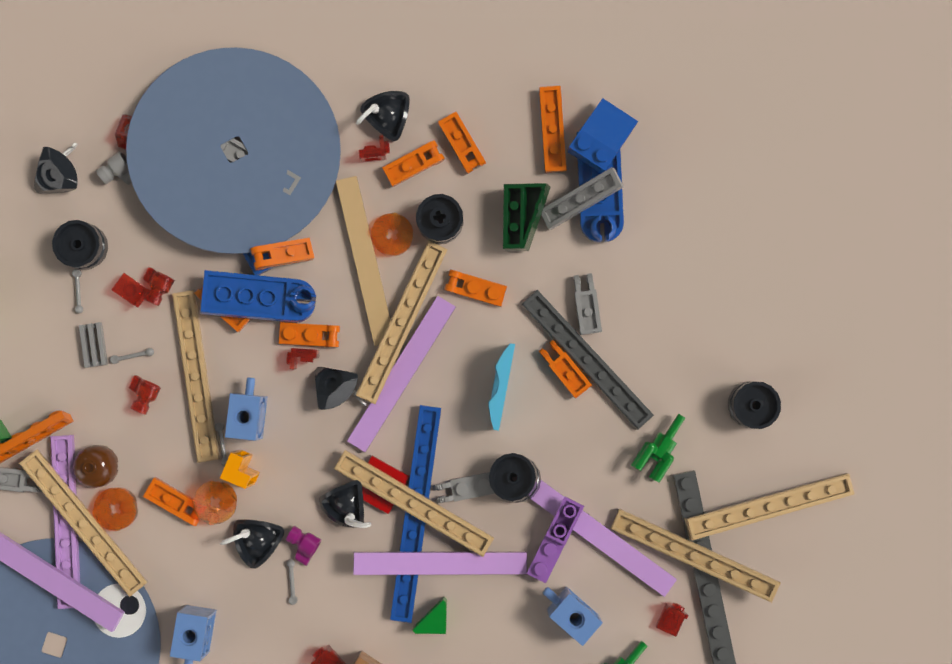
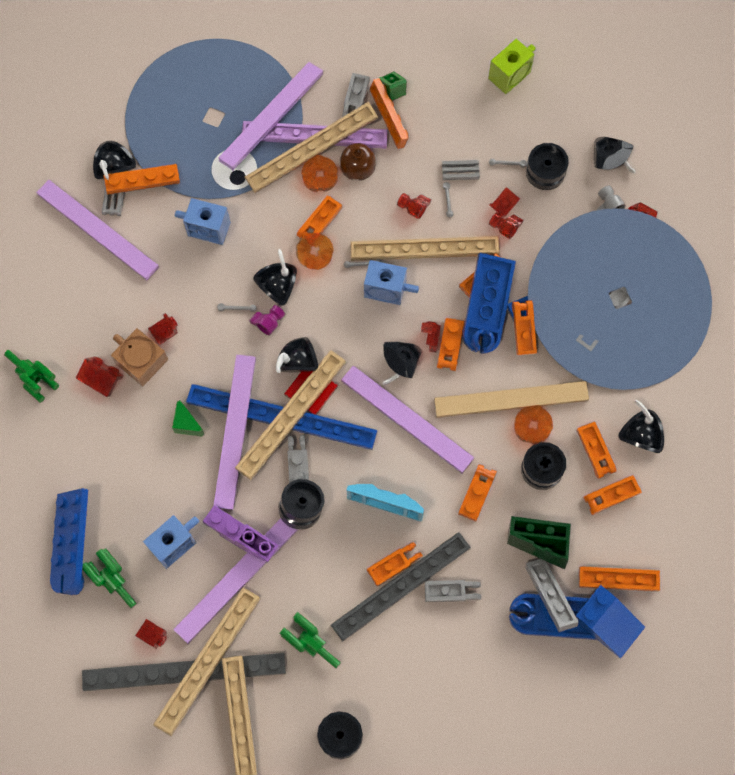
camera: 95 degrees right, 15 degrees down
(237, 470) = (340, 270): light orange piece -> none
(371, 153) = (607, 415): clear red bracket -> none
(401, 322) = (453, 423): tan tile -> none

